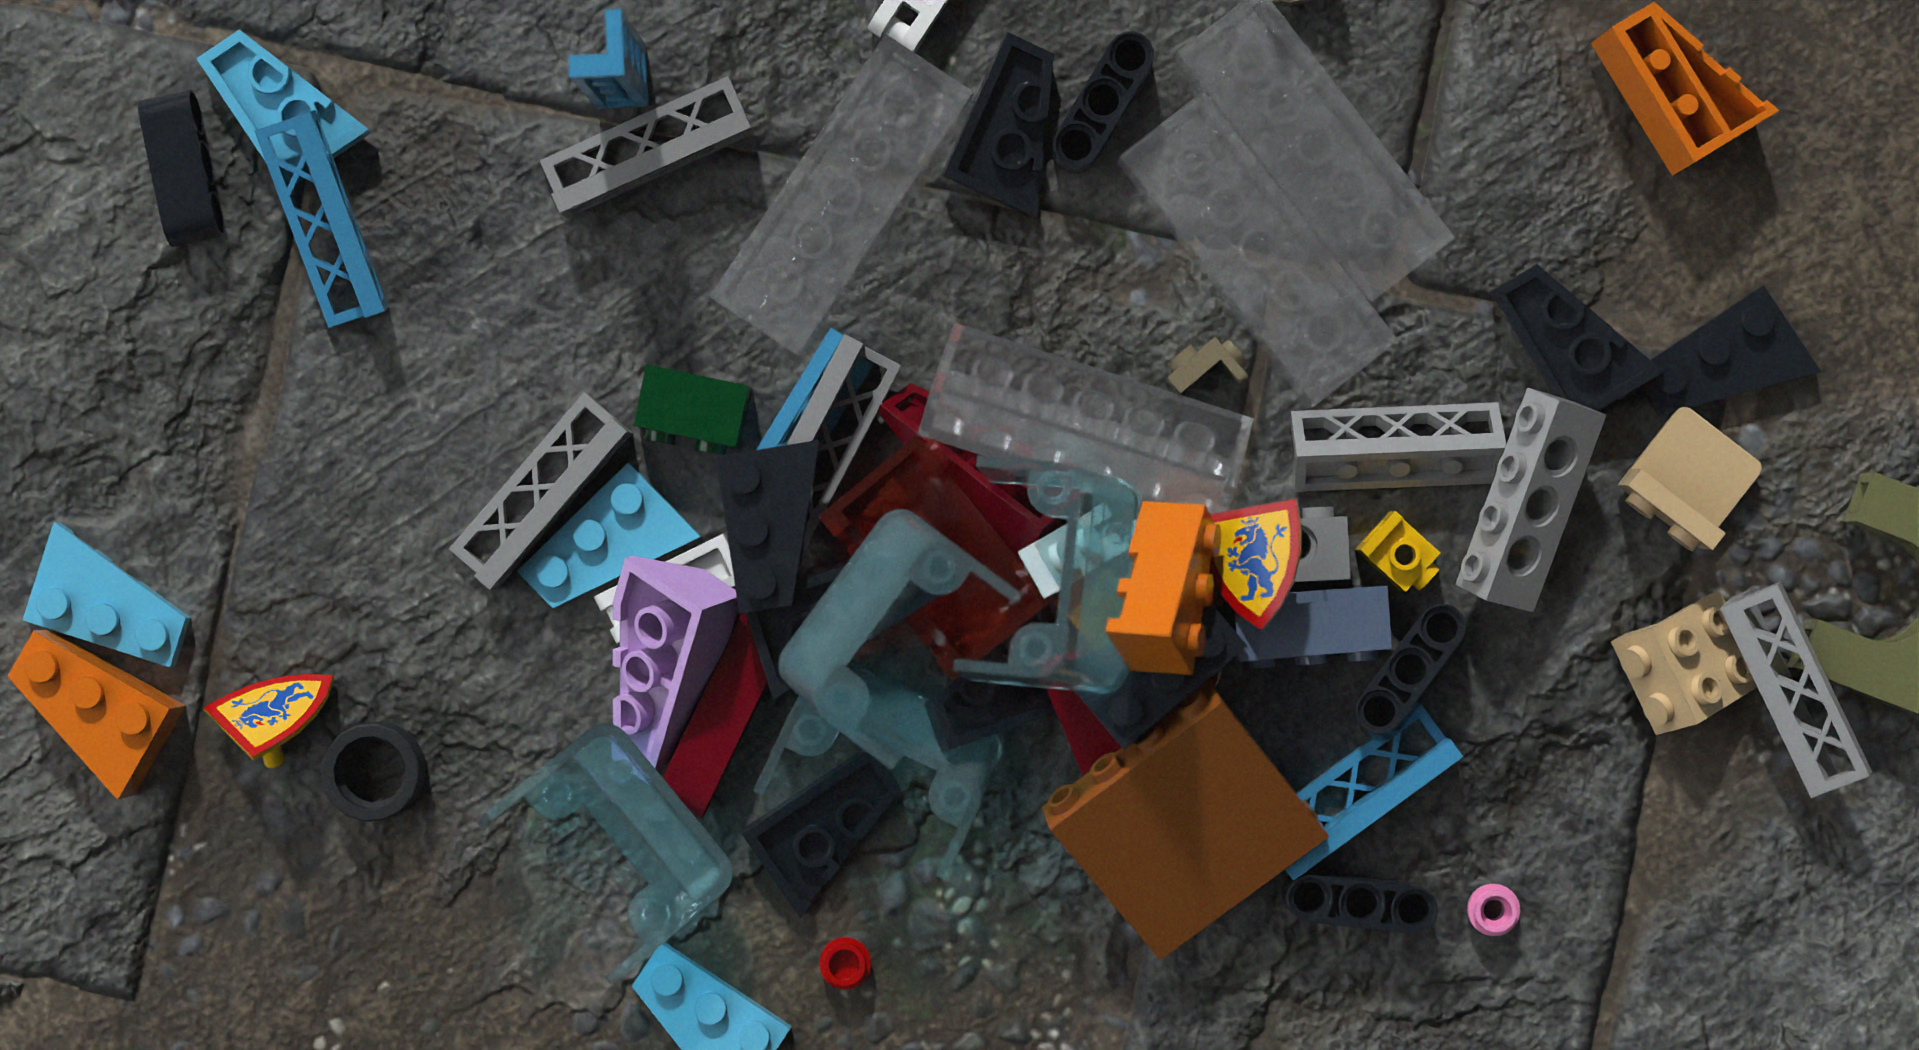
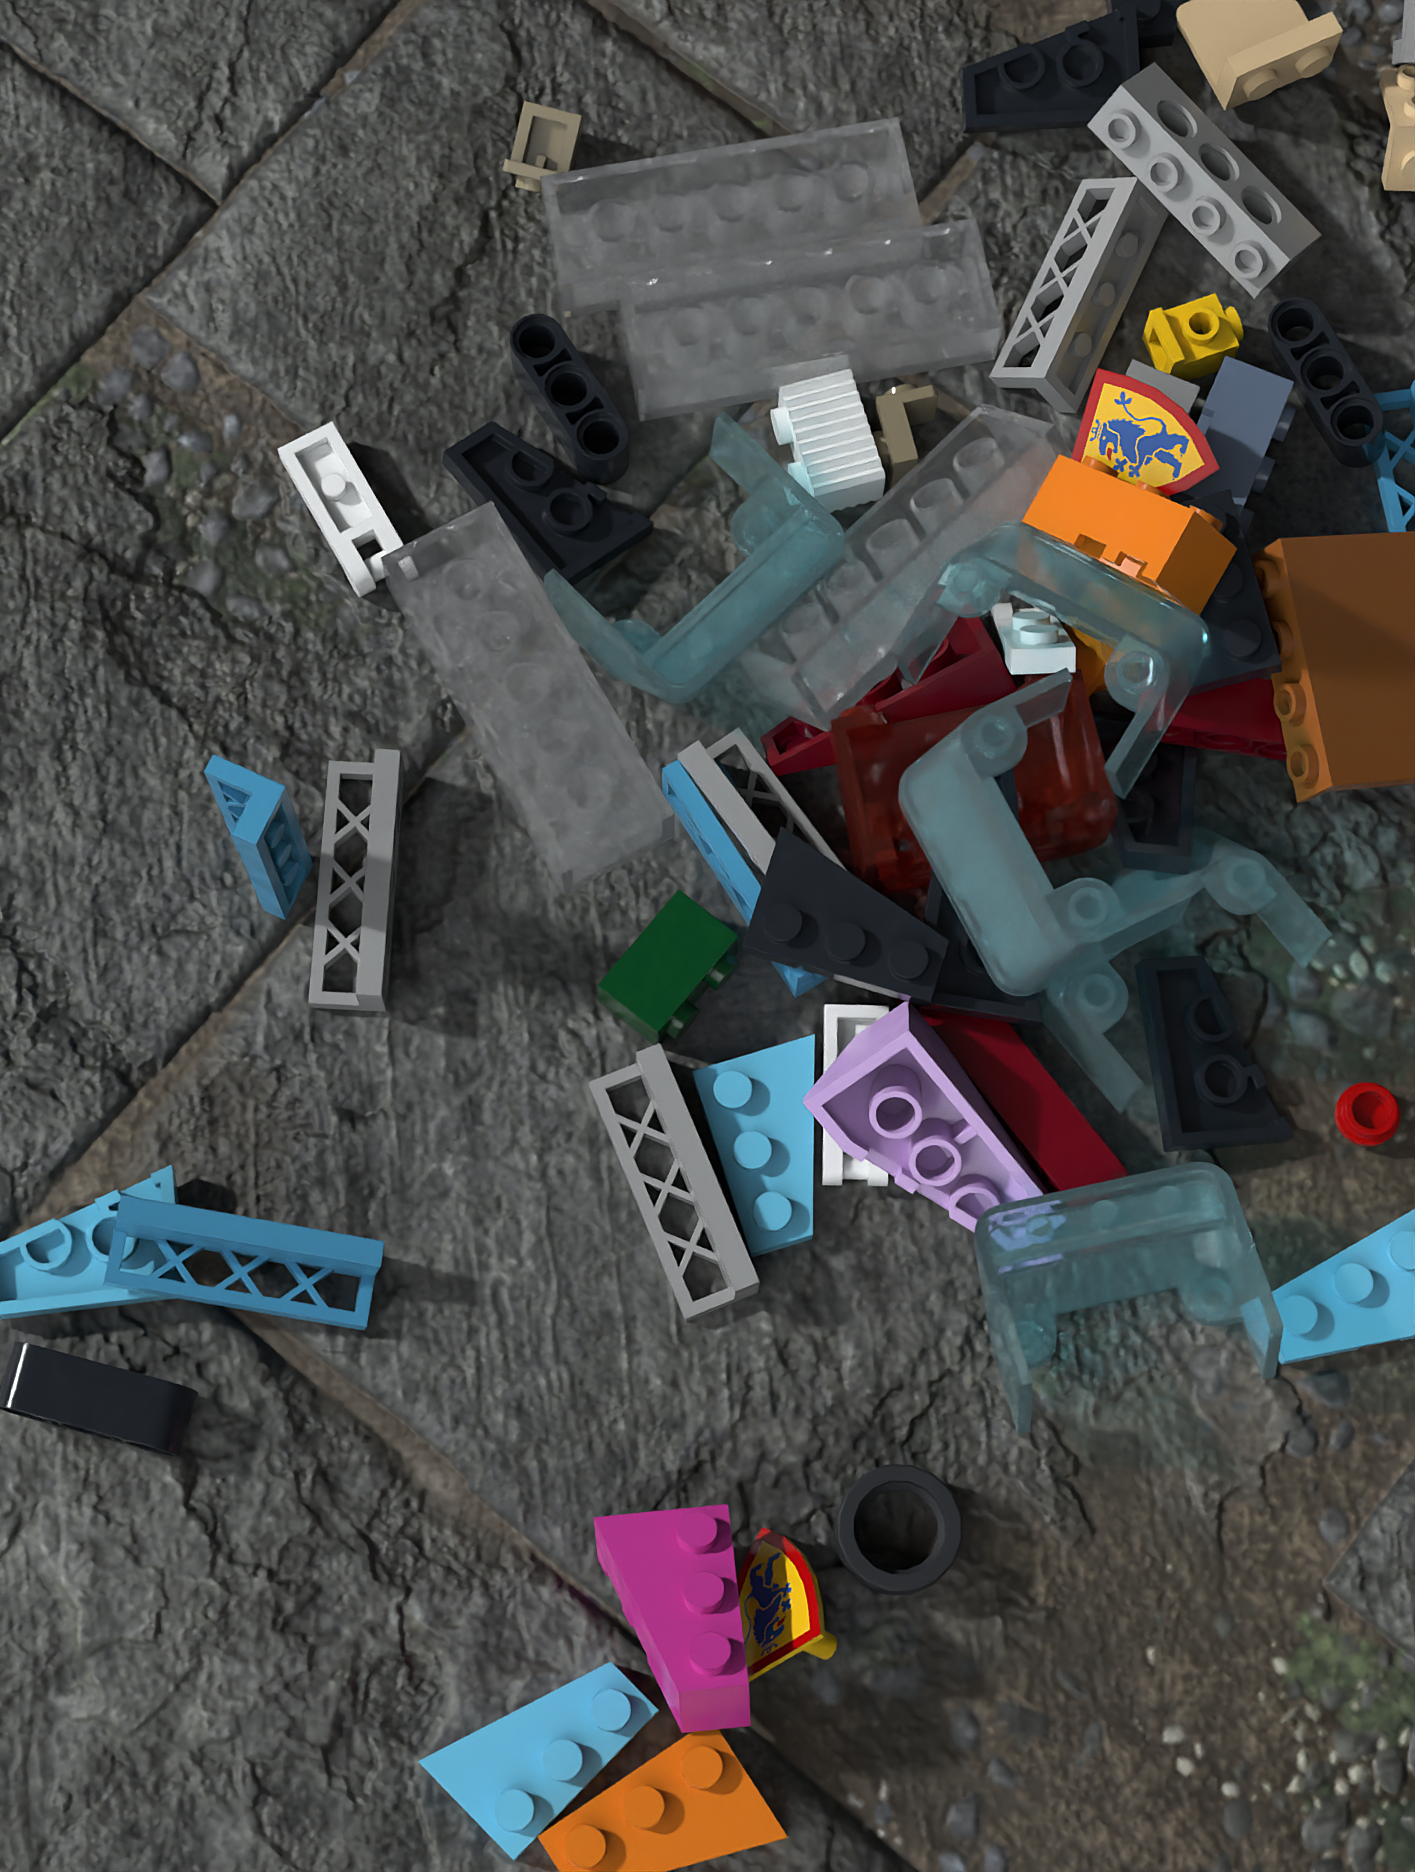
camera: 65 degrees left, 15 degrees down
(237, 653) = (684, 1604): none -> dark pink wedge
(930, 302) = (788, 552): none -> clear light blue windscreen
(1168, 316) = (829, 441): none -> white brick

